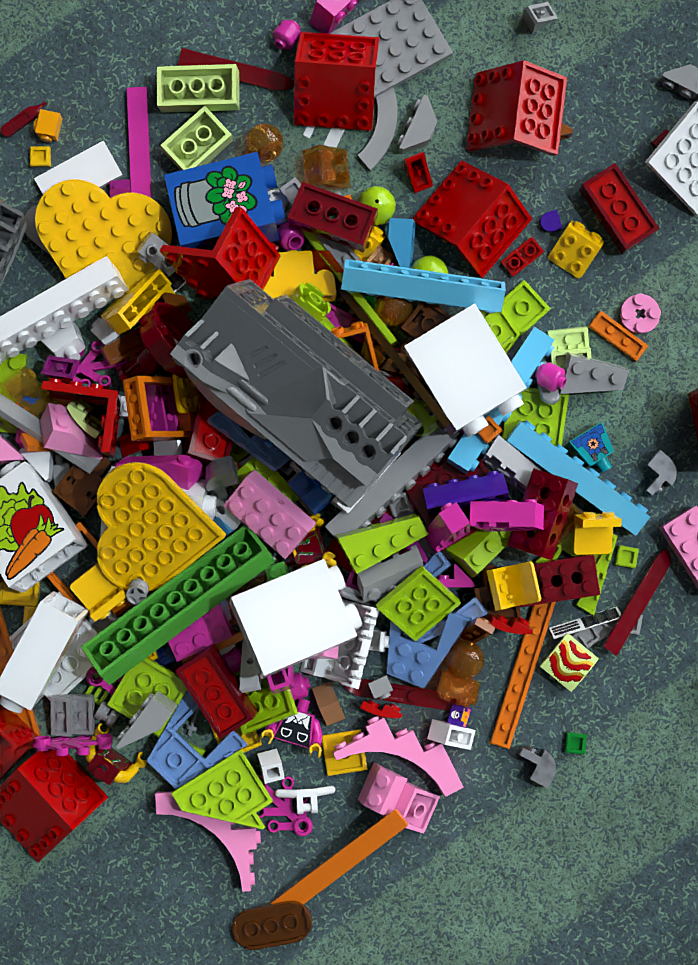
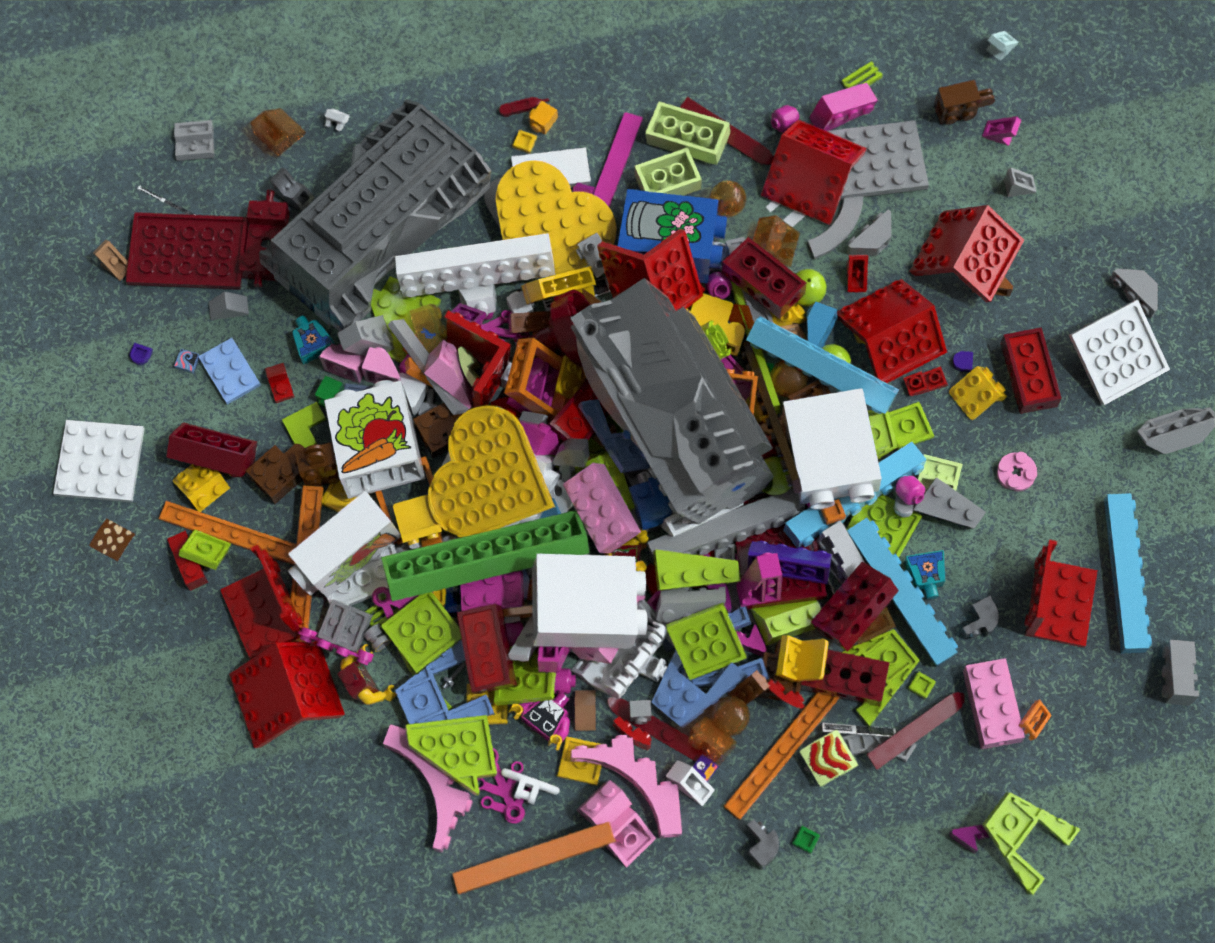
camera: 30 degrees right, 15 degrees down
(134, 595) = (448, 533): light grey wheel -> none
(155, 714) = (415, 647): light grey slope -> none
(270, 766) = (508, 742): white brick -> none
(272, 925) = (447, 893): reddish brown tile -> none
(507, 515) = (819, 590): dark pink wedge -> none
(594, 532) = (897, 644): yellow bracket -> none
(618, 336) = (988, 484): orange tile -> none

